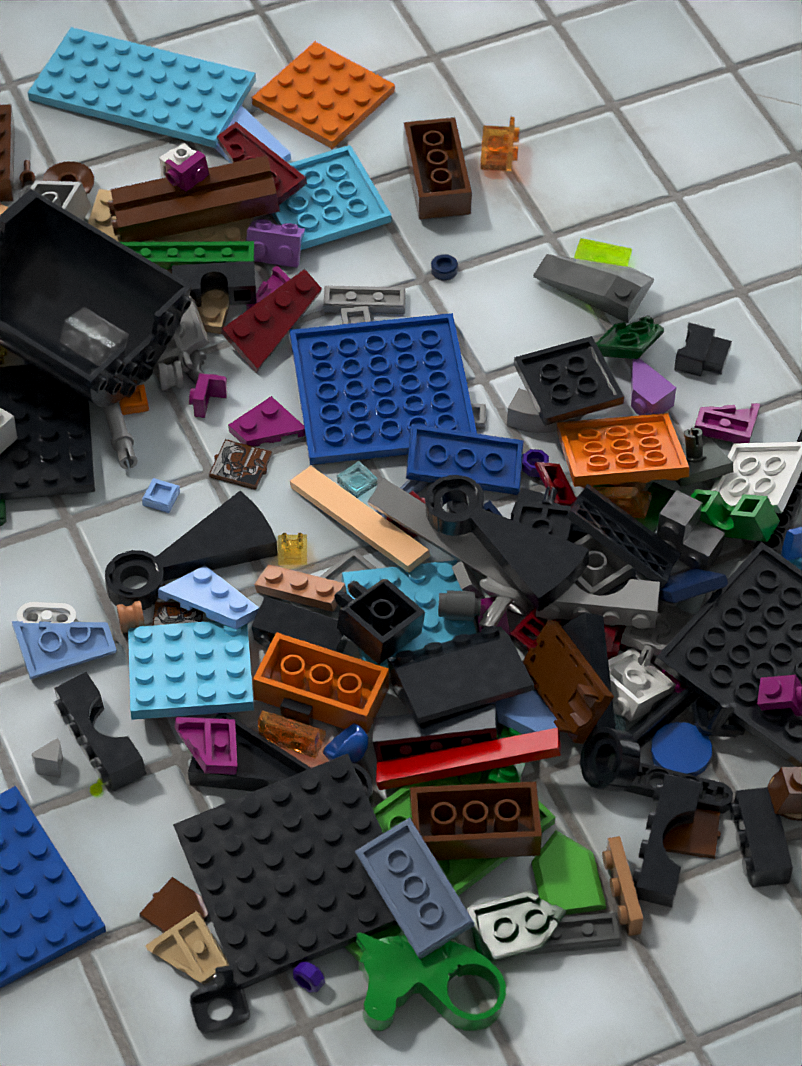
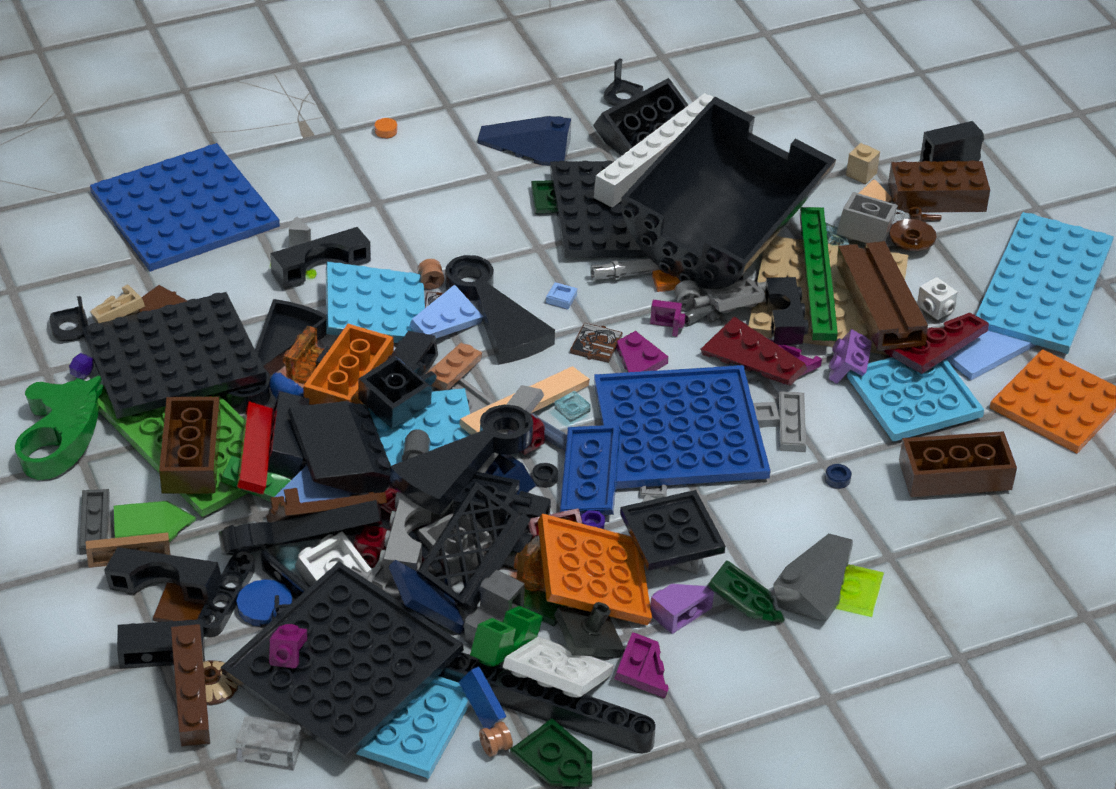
camera: 90 degrees right, 10 degrees down
(46, 612) = (435, 232): white plate -> none
(58, 646) = (405, 236): light blue wing -> none
(92, 336) = (714, 227): clear brick -> none
(188, 172) = (896, 273): magenta bracket -> none
(210, 743) = (291, 305): magenta wing -> none
(292, 549) = (500, 368): clear yellow tile -> none
(414, 888) = (126, 398): sand blue tile -> none
(498, 147) = (1000, 516): clear orange bracket -> none
(513, 925) = (102, 478): tile -> none
(702, 351) = (735, 651): black piece -> none

